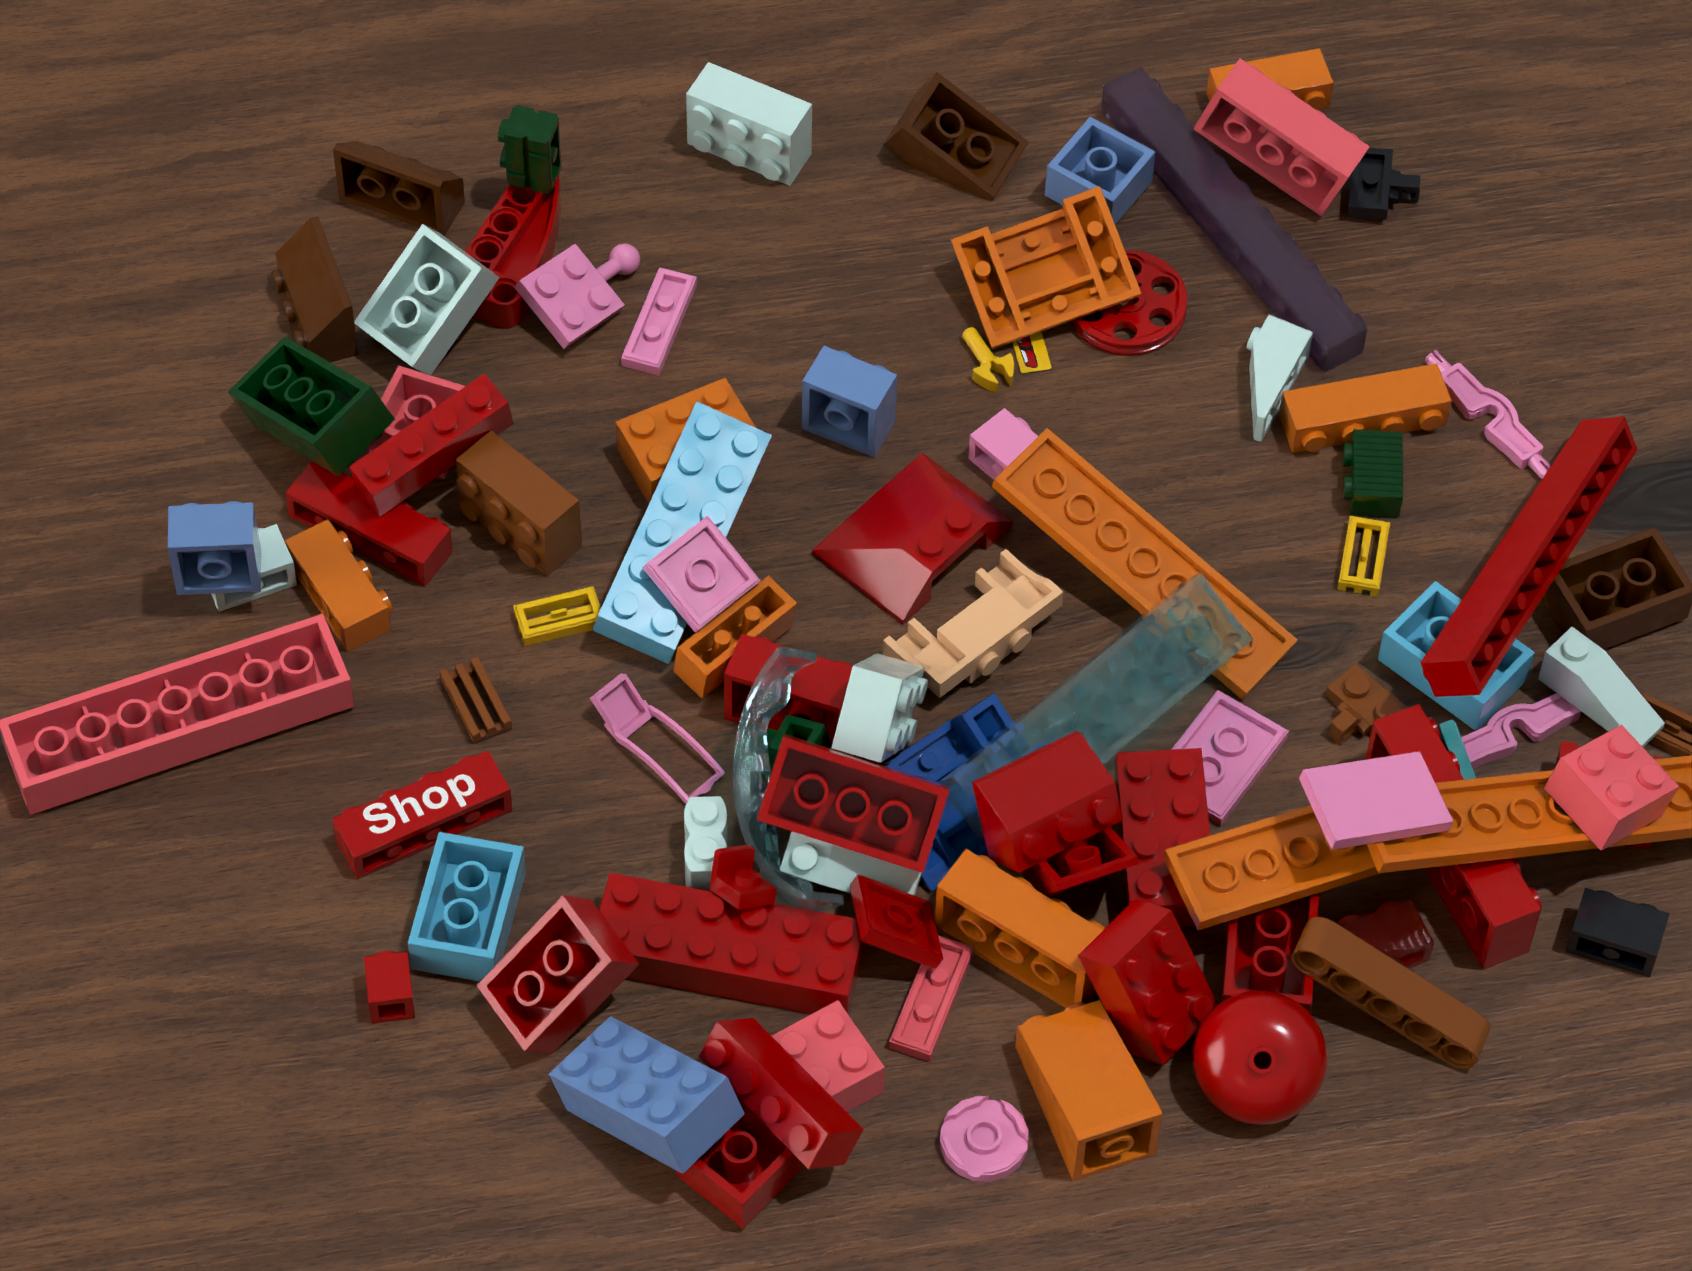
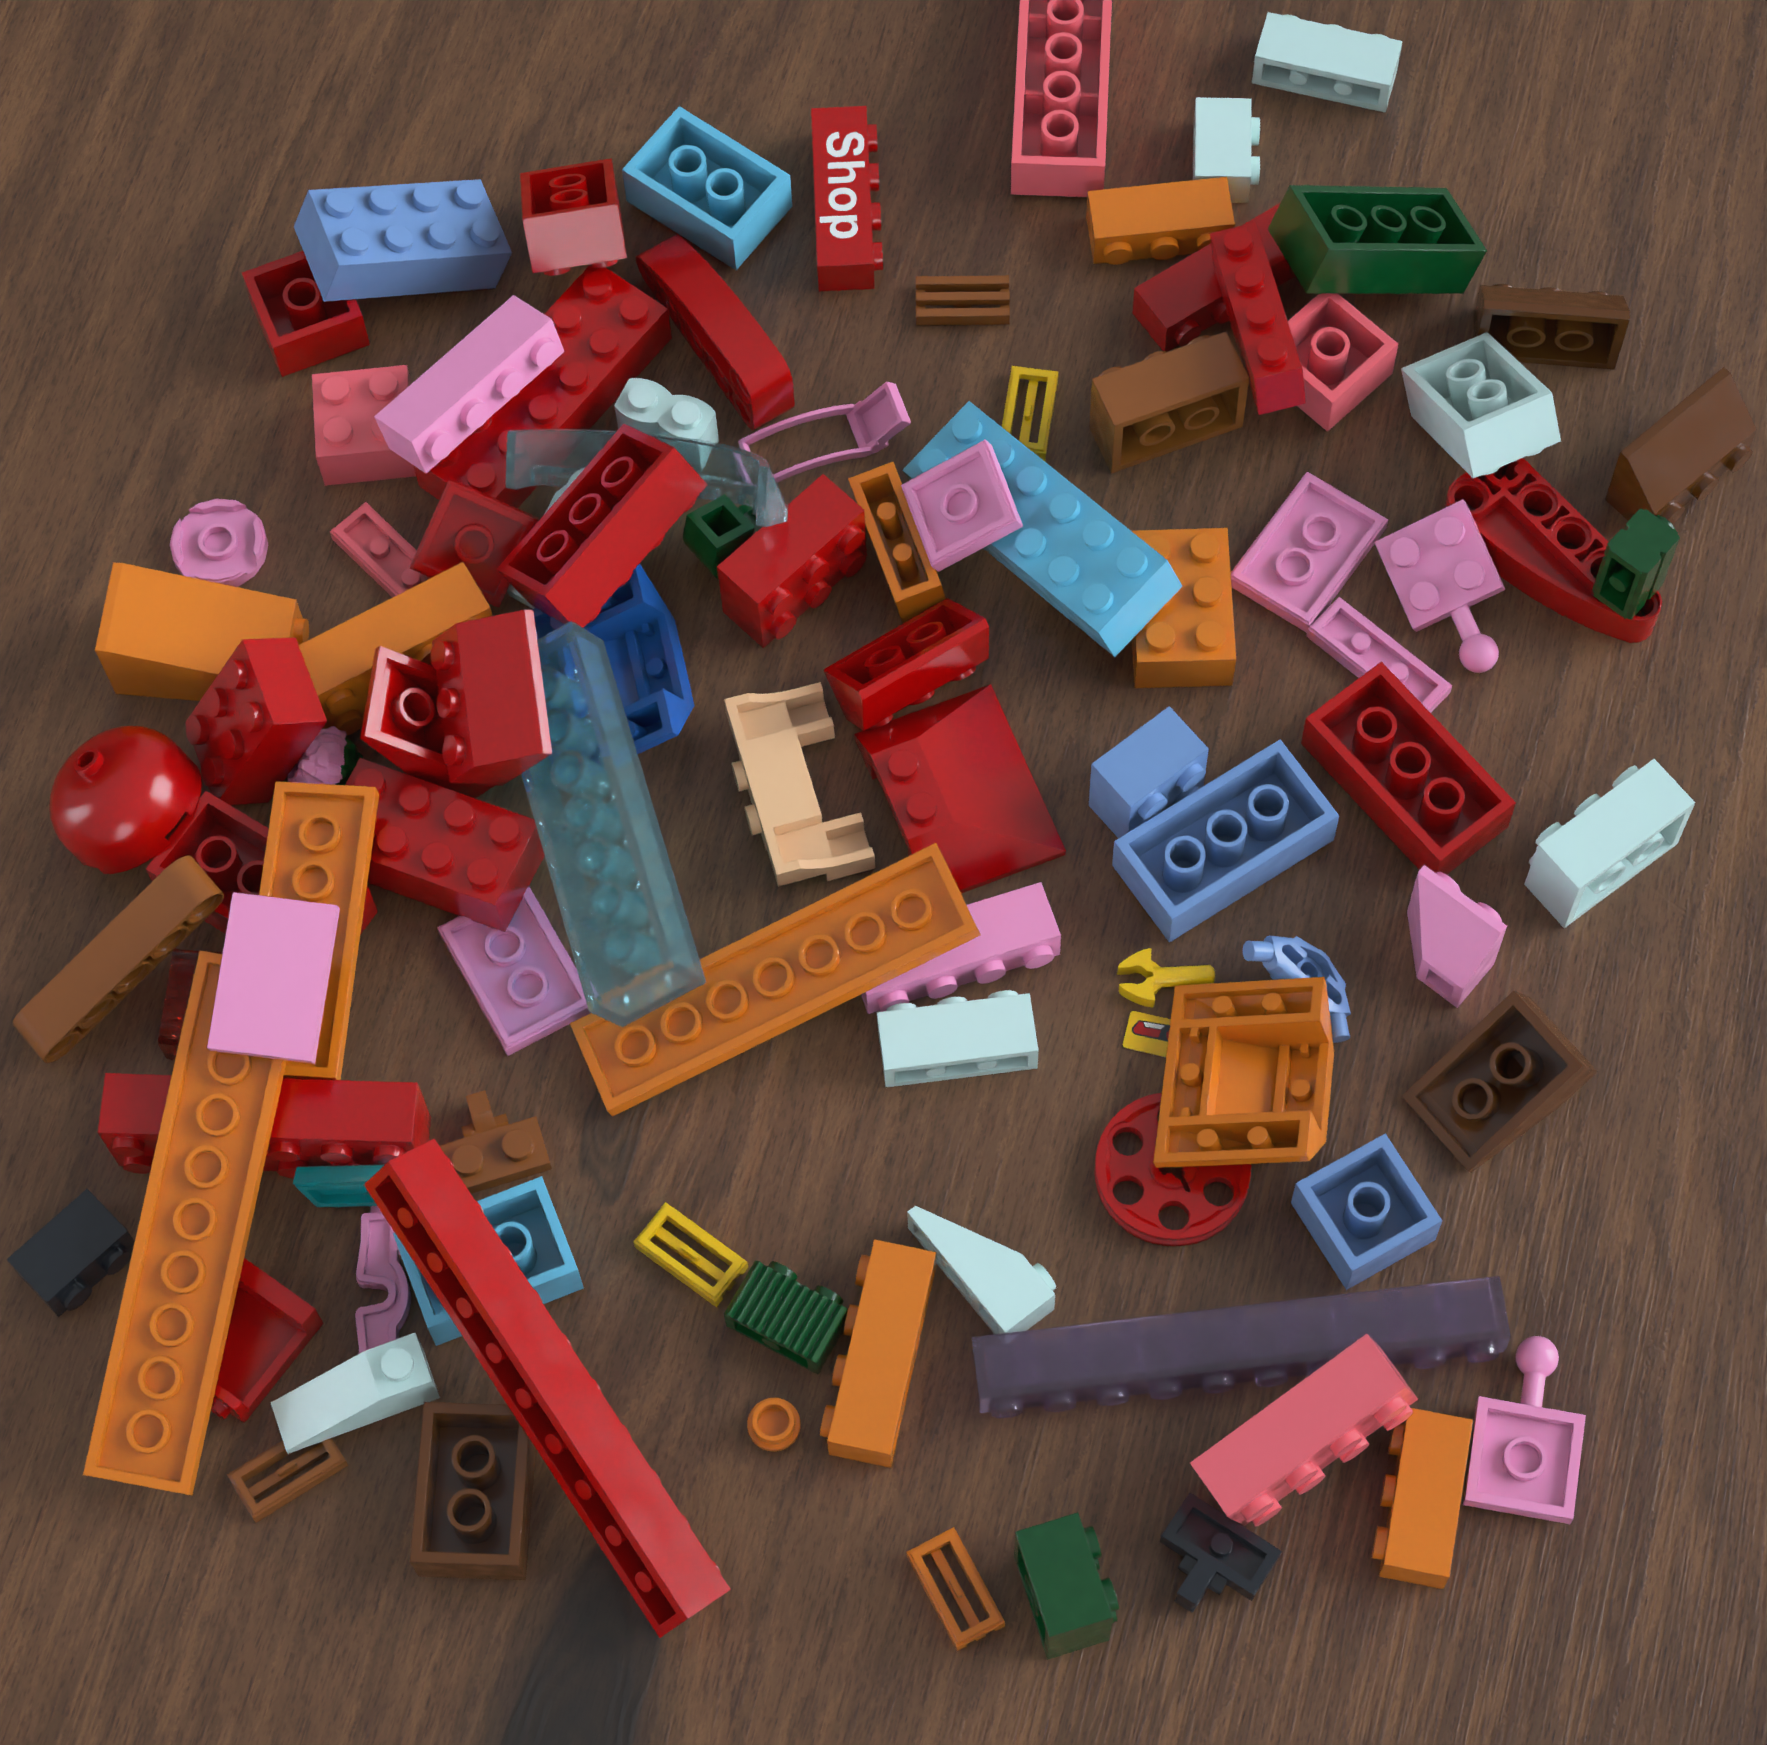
camera: 120 degrees right, 10 degrees up
(122, 528) = (1326, 61): none -> light aqua brick
(214, 548) = (1219, 80): medium blue brick -> none
(389, 987) = (659, 95): red brick -> none
(585, 392) = (1307, 552): none -> bright pink tile
(606, 831) = (719, 331): none -> red beam
(737, 882) = (583, 406): red bracket -> none
(753, 258) = (1407, 771): none -> red brick
(775, 950) = (469, 384): none -> bright pink brick
(781, 1093) = (330, 342): red brick -> none
(841, 578) = (909, 663): none -> red slope
(873, 192) = (1451, 936): none -> bright pink slope
(873, 331) = (1224, 840): none -> medium blue brick
(879, 707) = (708, 607): light aqua brick -> none
(942, 270) = (1298, 959): none -> medium blue piece
(1113, 448) = (957, 1038): none -> light aqua brick
(1196, 47) = (1526, 1454): none -> bright pink plate
(1450, 455) = (773, 1424): none -> orange plate
(1459, 238) = (1064, 1584): none -> dark green brick
(1474, 337) = (977, 1630): none -> orange tile
(1505, 429) = (839, 1497): bright pink piece -> none
(1611, 787) = (173, 1264): coral brick -> none

